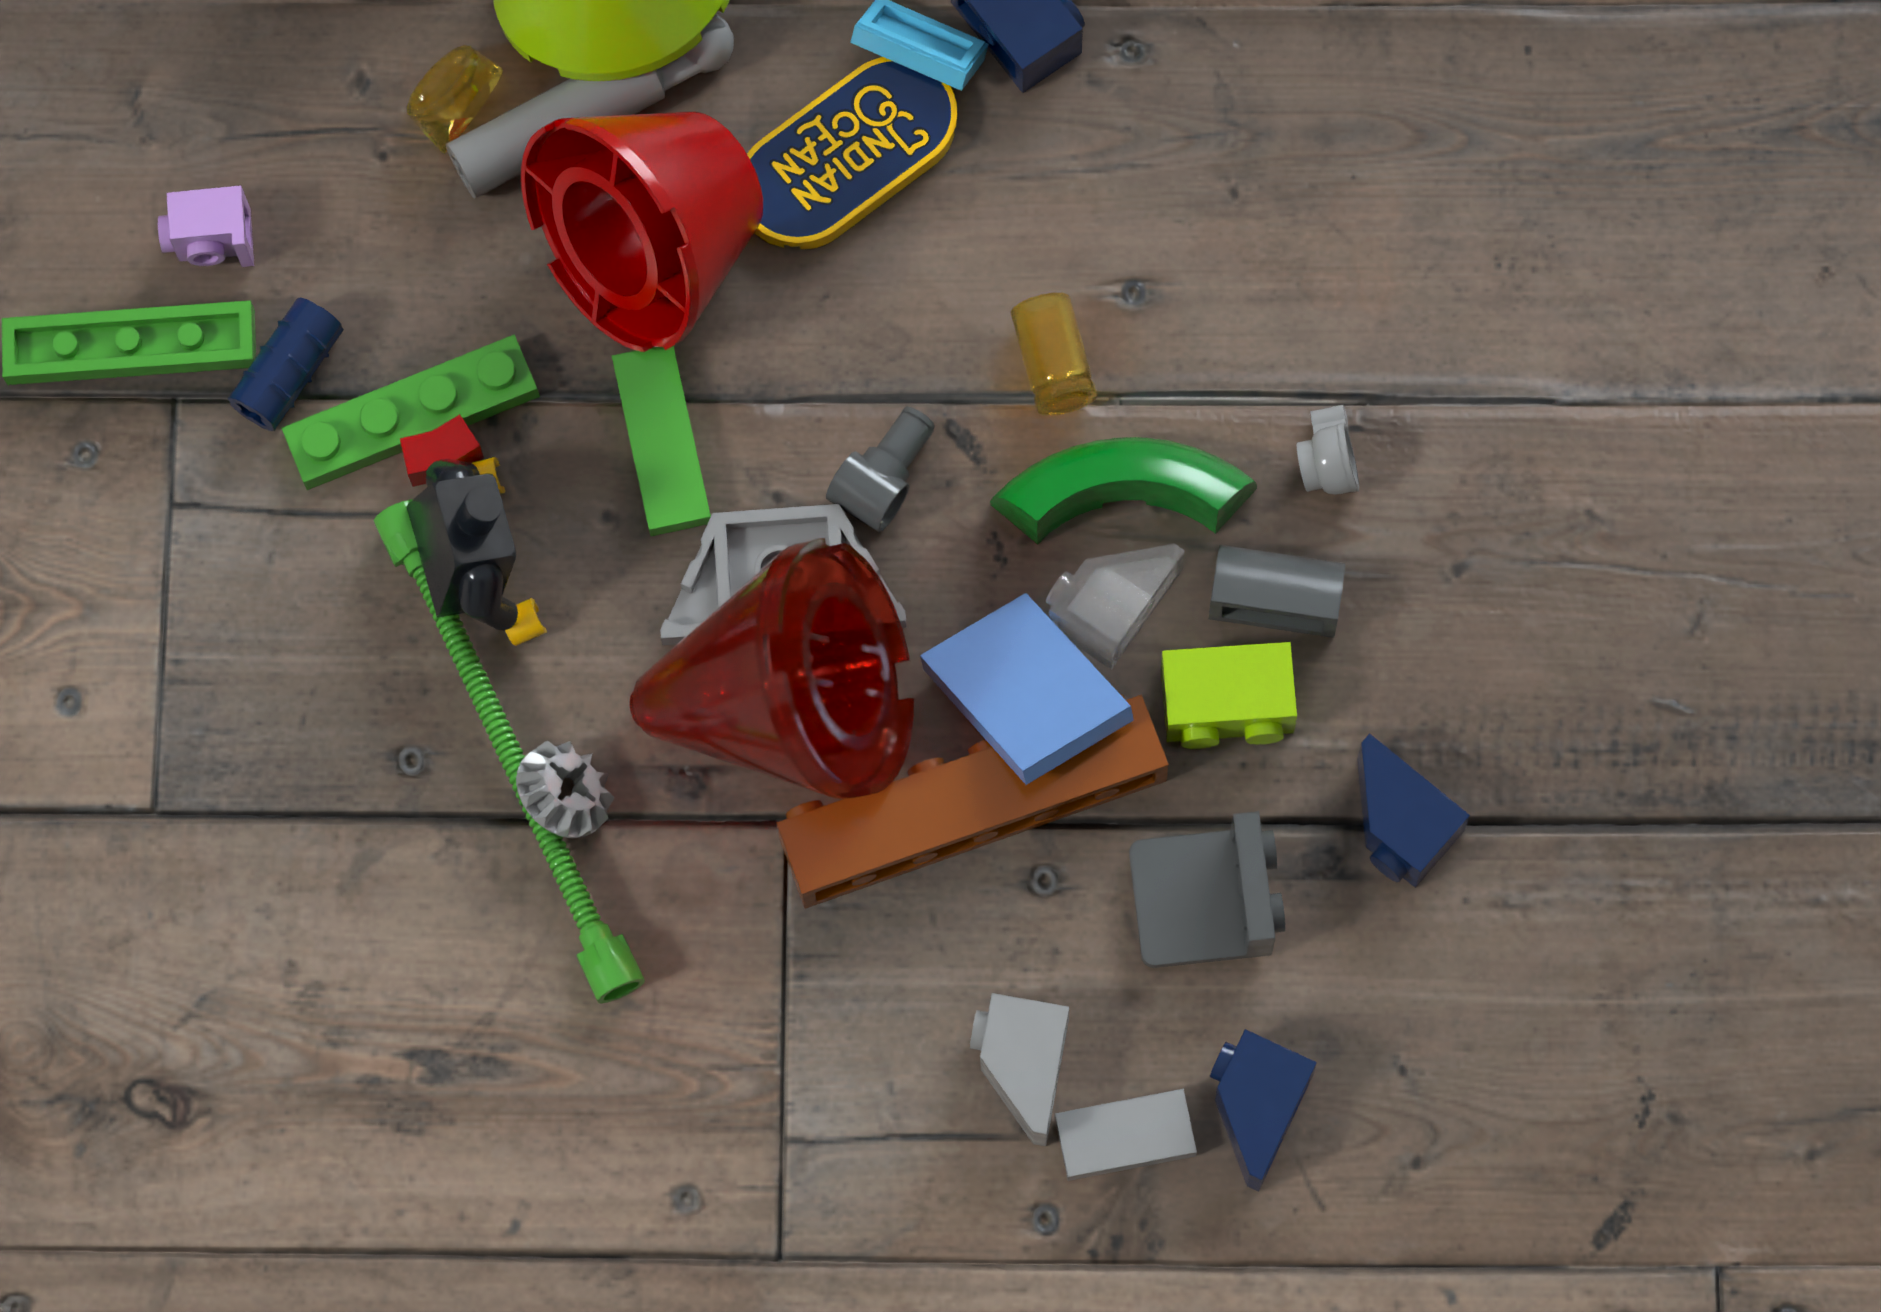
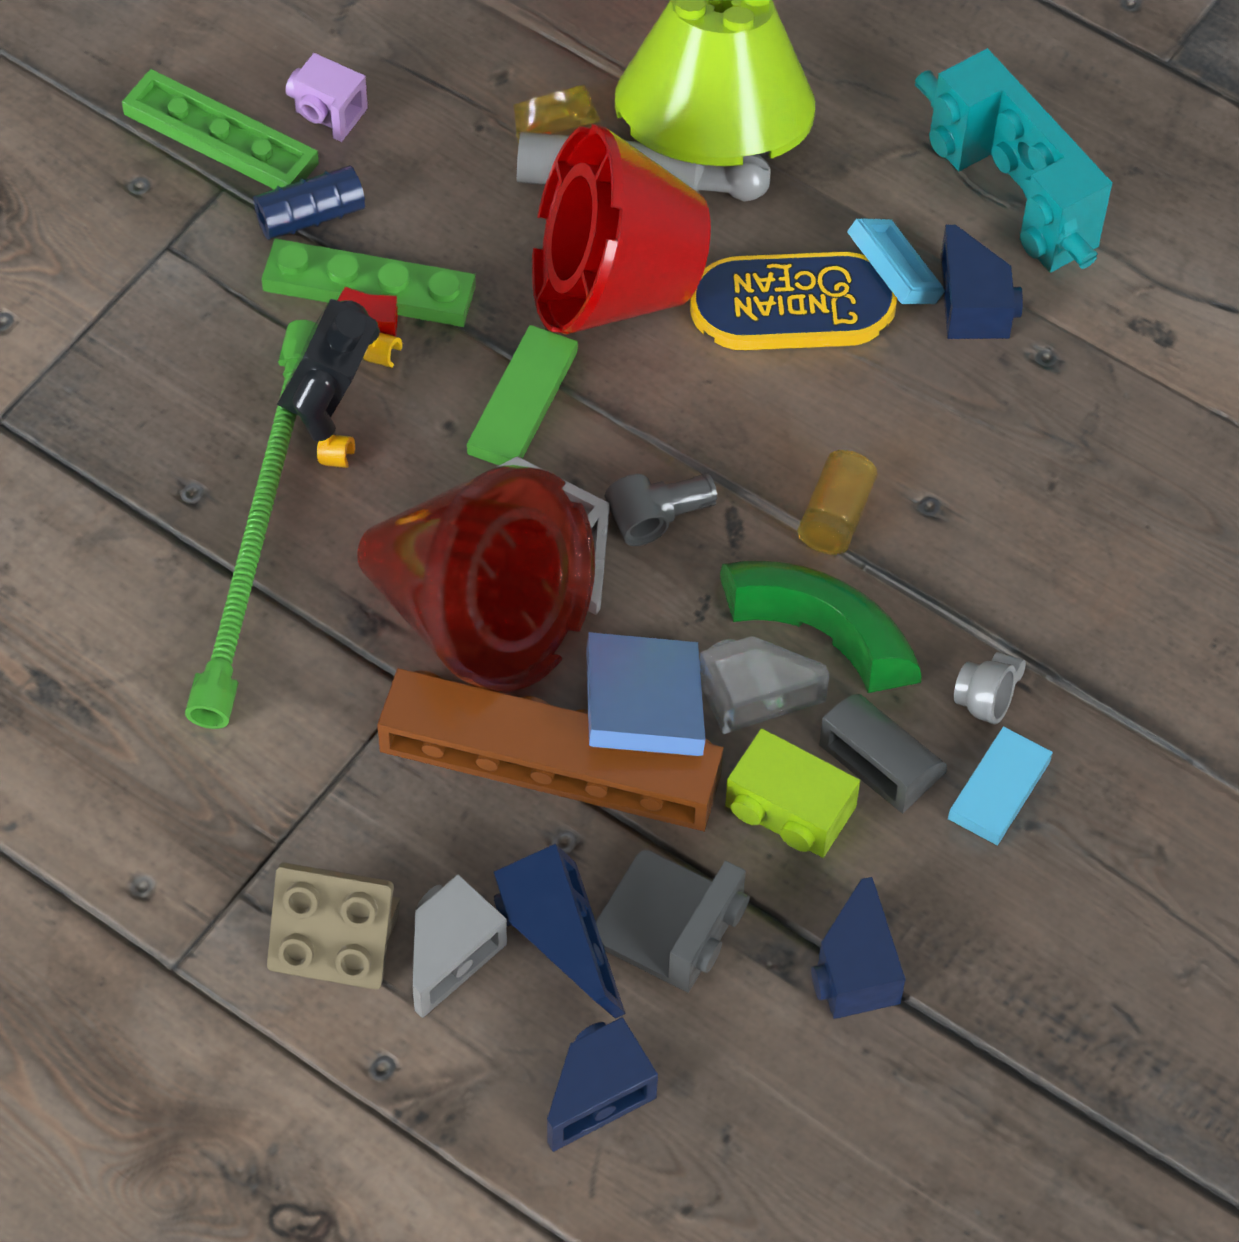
camera: 30 degrees right, 15 degrees down
(539, 786) = (265, 581): light grey gear -> none
(908, 1122) = (331, 925): none -> dark tan bracket
(1107, 972) = (551, 909): none -> dark blue slope
(1125, 1134) = (484, 1044): light grey tile -> none
(1406, 550) = (1000, 785): none -> medium azure tile

